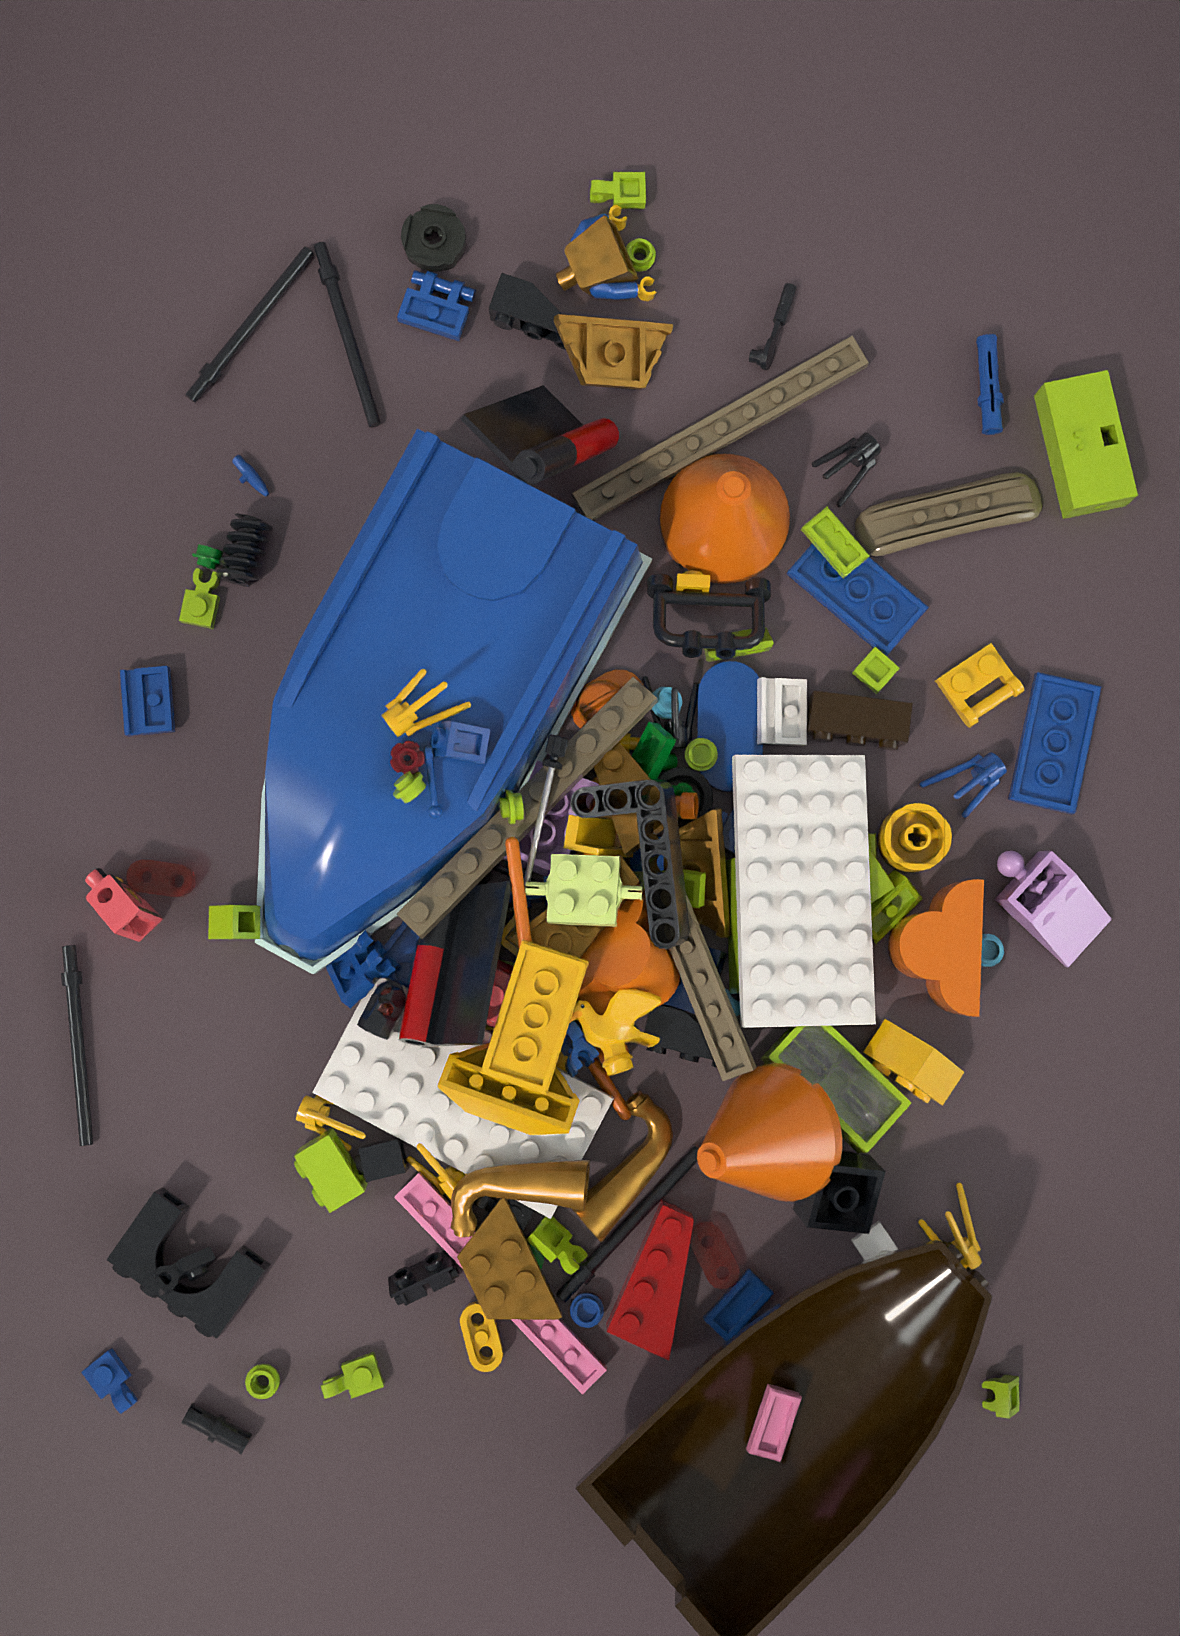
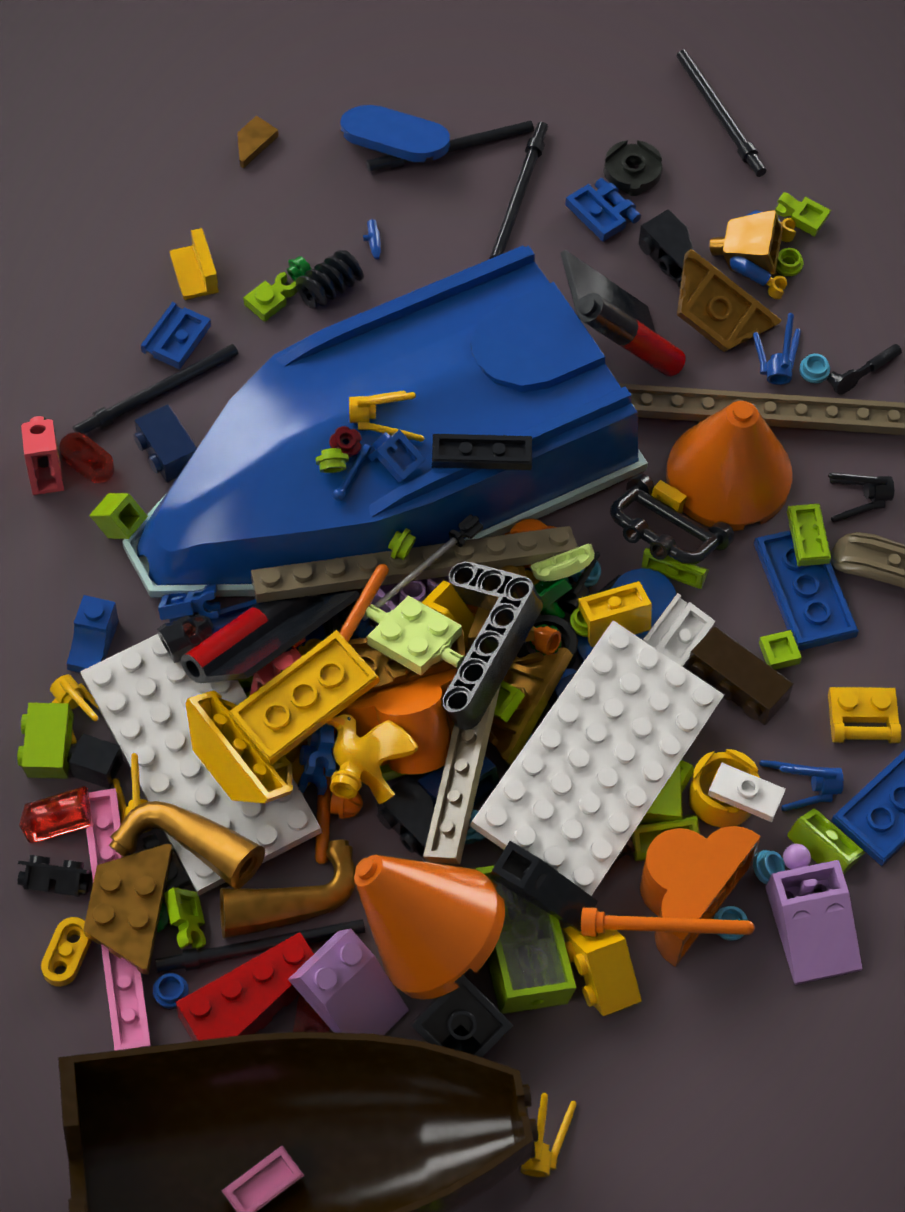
camera: 30 degrees right, 25 degrees down
(63, 437) = (254, 139): none -> pearl gold tile
(110, 617) = (195, 267): none -> yellow panel
(144, 827) = (104, 417): none -> black bar
(191, 347) = (395, 133): none -> blue tile
(220, 818) = (164, 441): none -> dark blue brick
(295, 1048) = (93, 633): none -> blue arch
(385, 1227) = (56, 815): none -> clear red slope
(525, 149) = (745, 149): none -> black bar
(534, 687) = (482, 451): none -> black tile
(655, 722) = (563, 564): none -> yellowish green tile
(702, 377) = (780, 365): none -> blue plant
(723, 733) = (625, 605): none -> yellow panel
(731, 1227) = (349, 987): none -> lavender slope
(732, 357) = (814, 368): none -> medium azure plate
(833, 1044) = (541, 885): none -> black slope
(899, 1044) = (597, 922): none -> orange piece
(943, 841) = (746, 792): none -> white plate
(992, 880) = (766, 863): none -> medium azure plate
(1017, 825) = (824, 840): none -> lime slope

